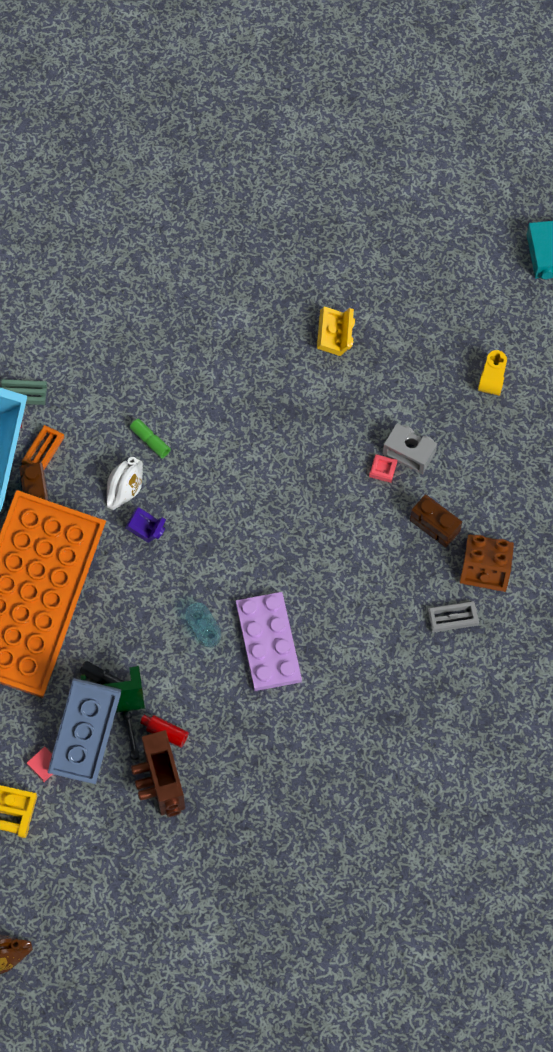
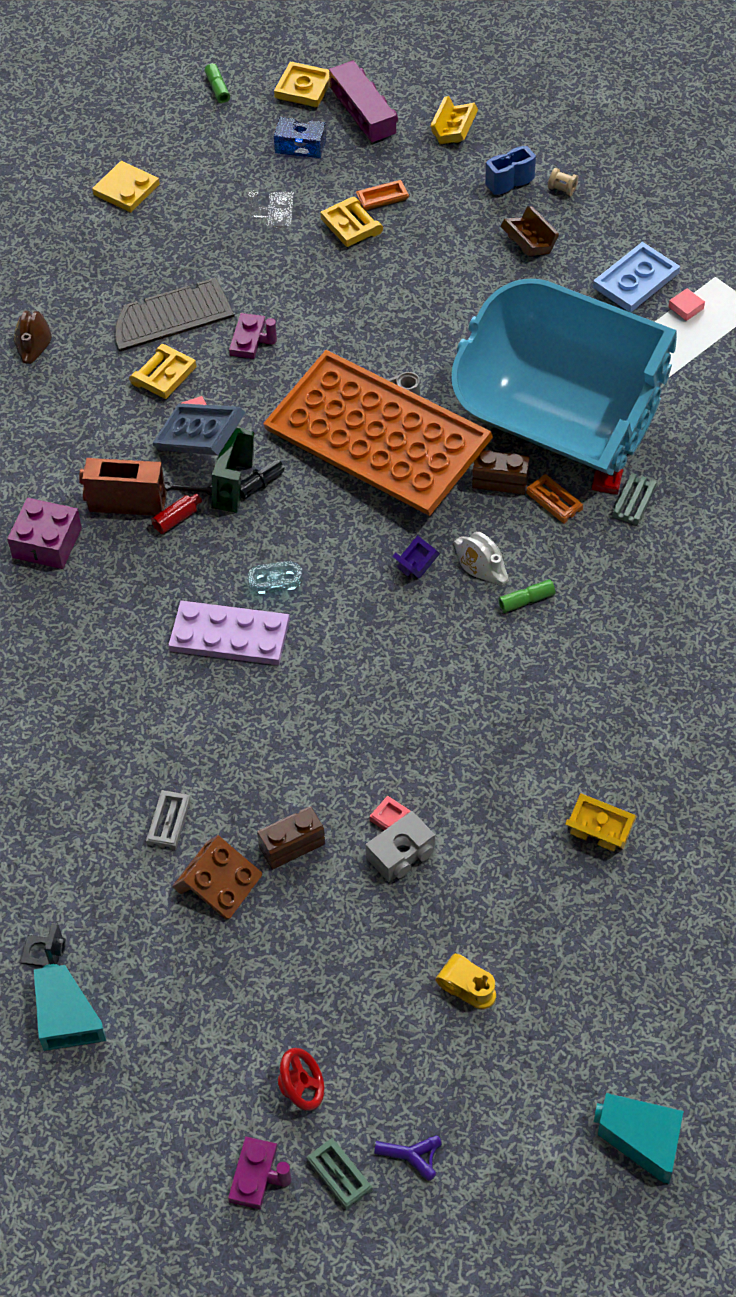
camera: 115 degrees right, 10 degrees down
(231, 825) = (44, 533): none -> magenta brick

